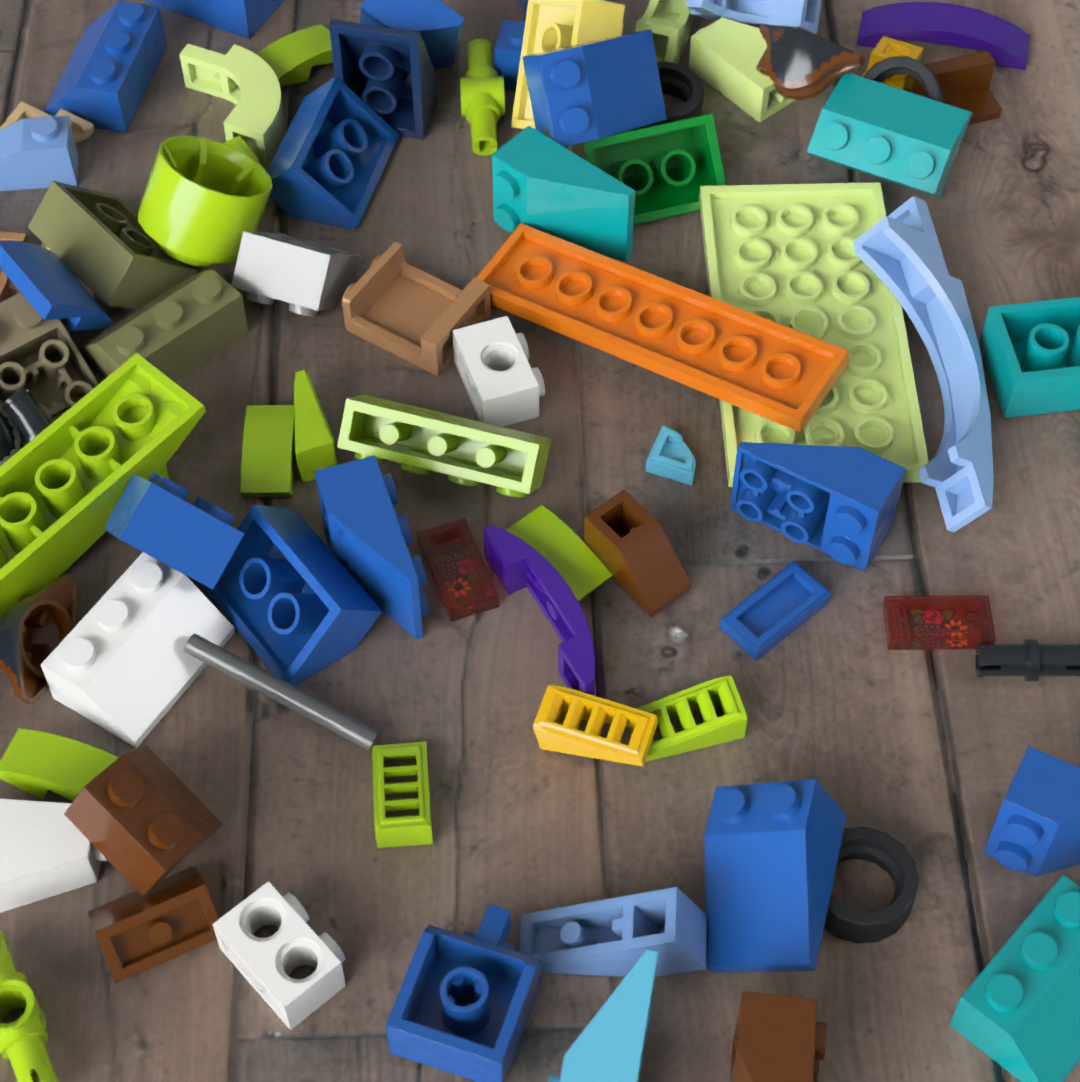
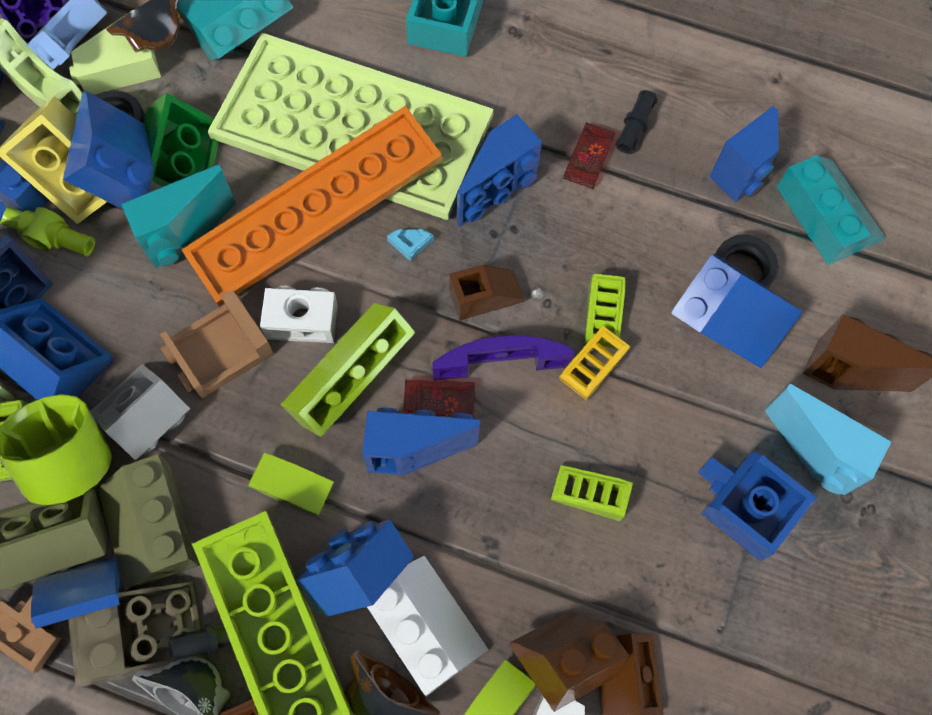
camera: 70 degrees left, 15 degrees up
(271, 959) = (685, 609): white brick -> none
(282, 692) = (491, 541): dark grey bar -> none
(292, 596) = (427, 504): blue slope -> none
(313, 438) = (296, 449): lime slope -> none
(563, 550) = (454, 332): lime slope -> none
(615, 932) = (735, 410): medium blue slope -> none
(775, 610) = (546, 234): blue tile -> none
(911, 264) = (370, 47): light blue slope -> none

